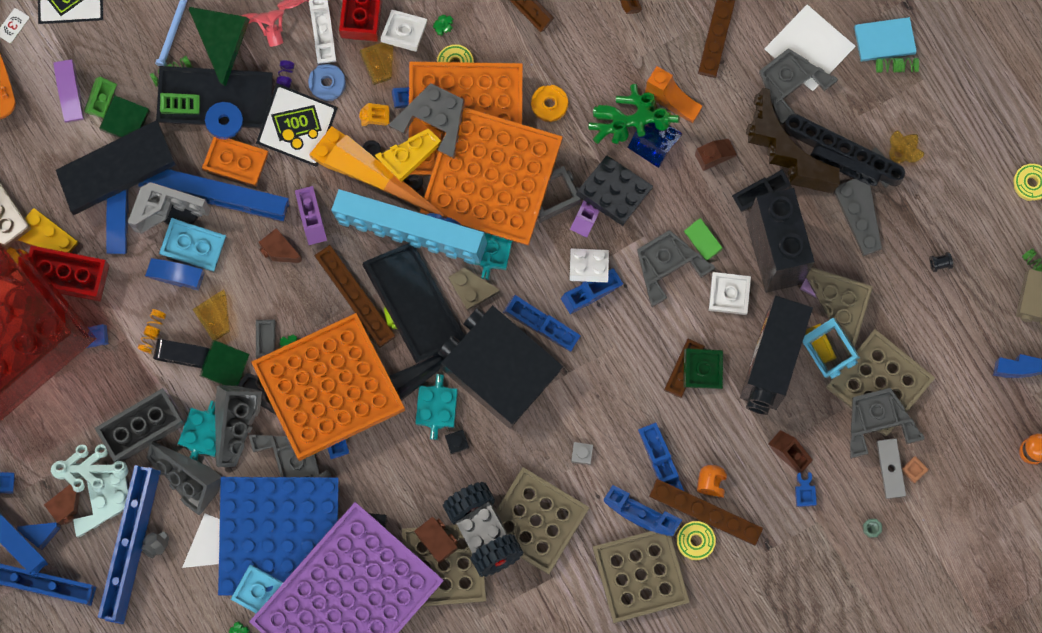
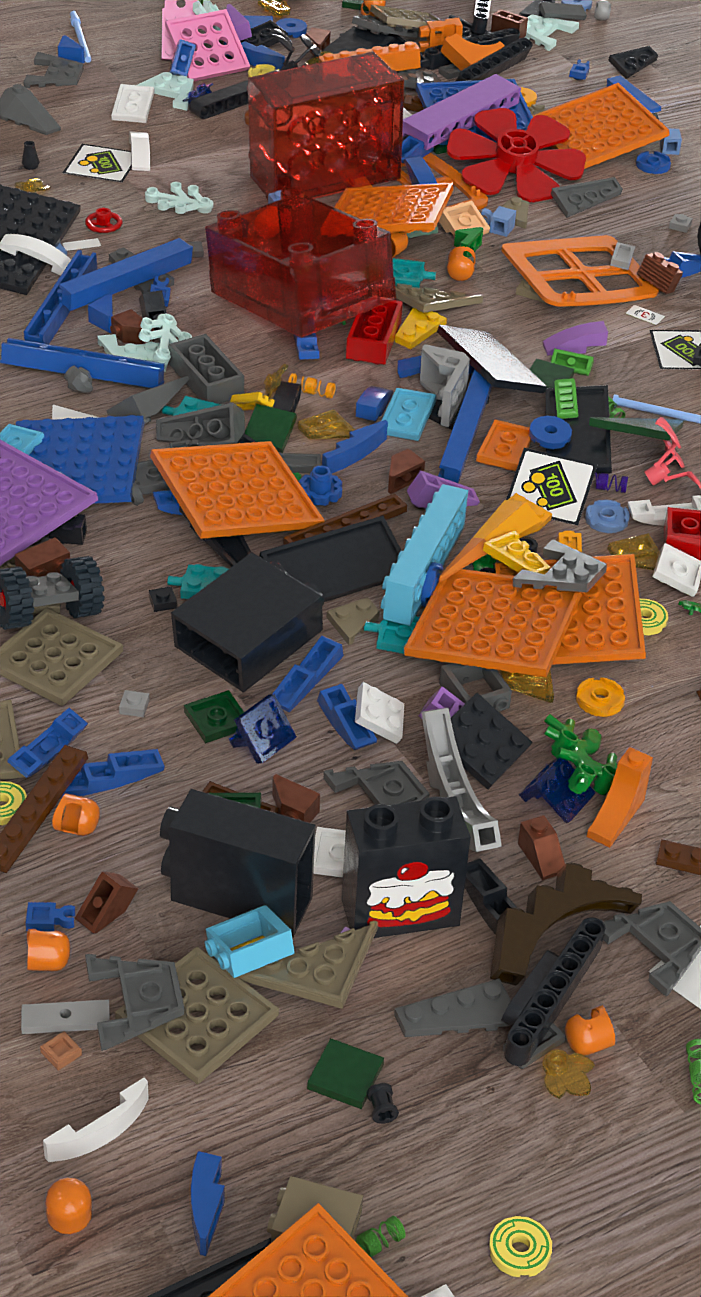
camera: 90 degrees right, 35 degrees down
(35, 485) = (152, 305): none -> black slope
(155, 364) = (273, 380): none -> clear yellow plate
(191, 381) = (249, 400): none -> yellow tile
(242, 285) = (359, 445): none -> blue slope
(299, 312) = (322, 486): none -> blue plant
(592, 389) = (214, 715): none -> dark green tile
(614, 353) = (263, 729): none -> clear blue bracket
(680, 208) = (449, 776): none -> light grey arch
(686, 326) = (295, 799): none -> copper slope
(844, 486) = (47, 950): none -> orange helmet
(877, 130) = (590, 1035): none -> orange helmet
(916, 286) = (345, 1073): none -> dark green tile
(991, 456) = (70, 1144): none -> white slope

